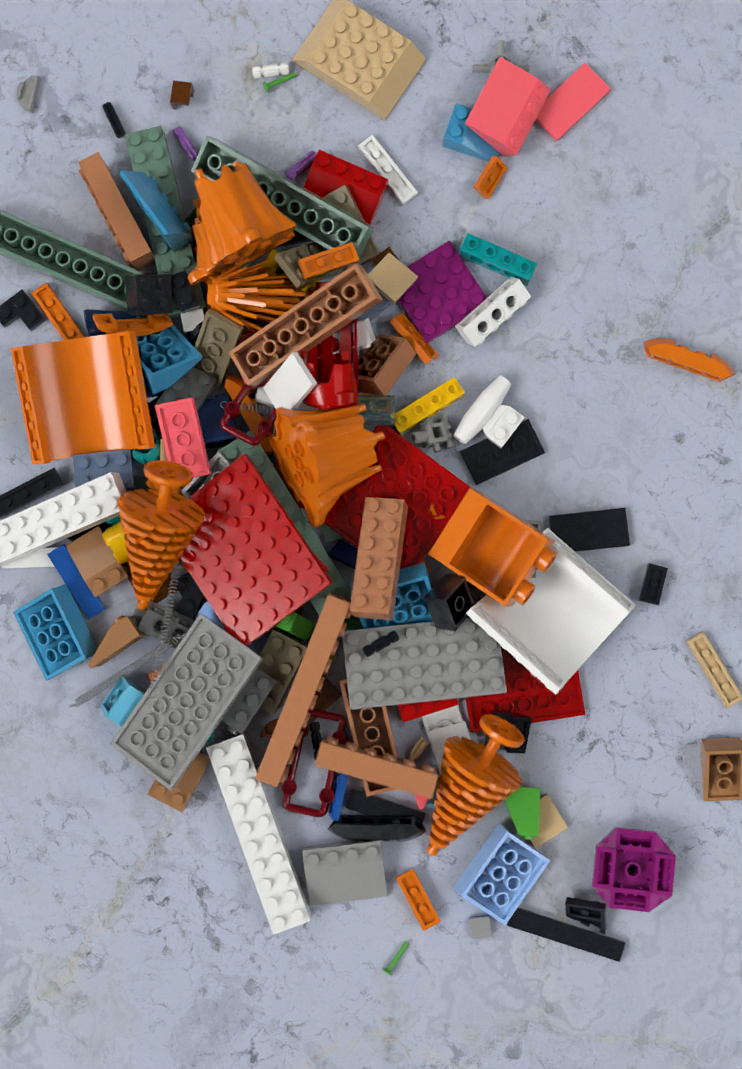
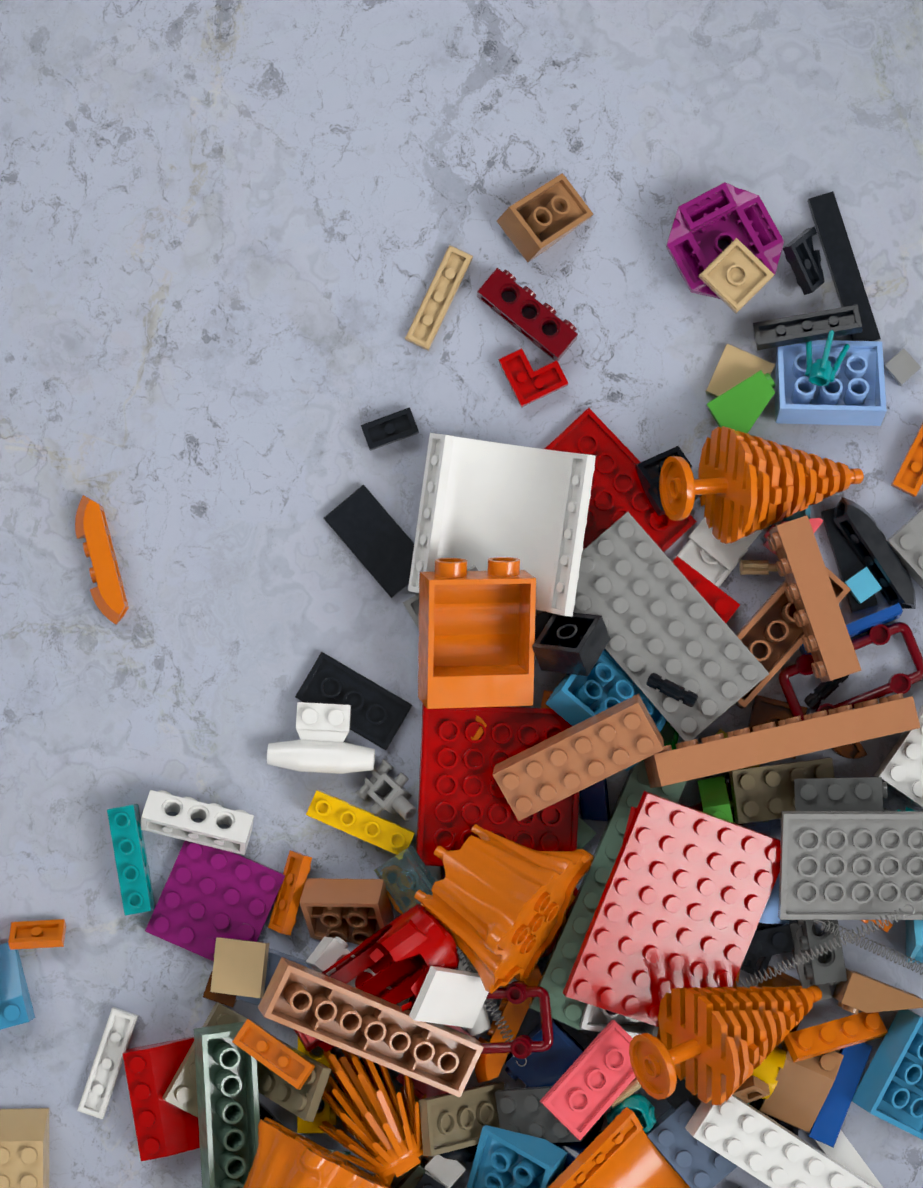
camera: 130 degrees left, 0 degrees up
(110, 599) = (834, 1035): none -> orange plate
(113, 527) = (752, 1090): none -> medium nougat plate
(301, 165) = (171, 1170): medium lavender axle -> none
(363, 806) = (863, 585): none -> medium azure tile
(512, 873) = (821, 371): none -> teal plant
(545, 884) = (807, 327): none -> black hinge
(608, 861) = (736, 275): none -> tan tile
(623, 688) = (531, 384): none -> red plate
(638, 719) = (553, 345): none -> dark red brick

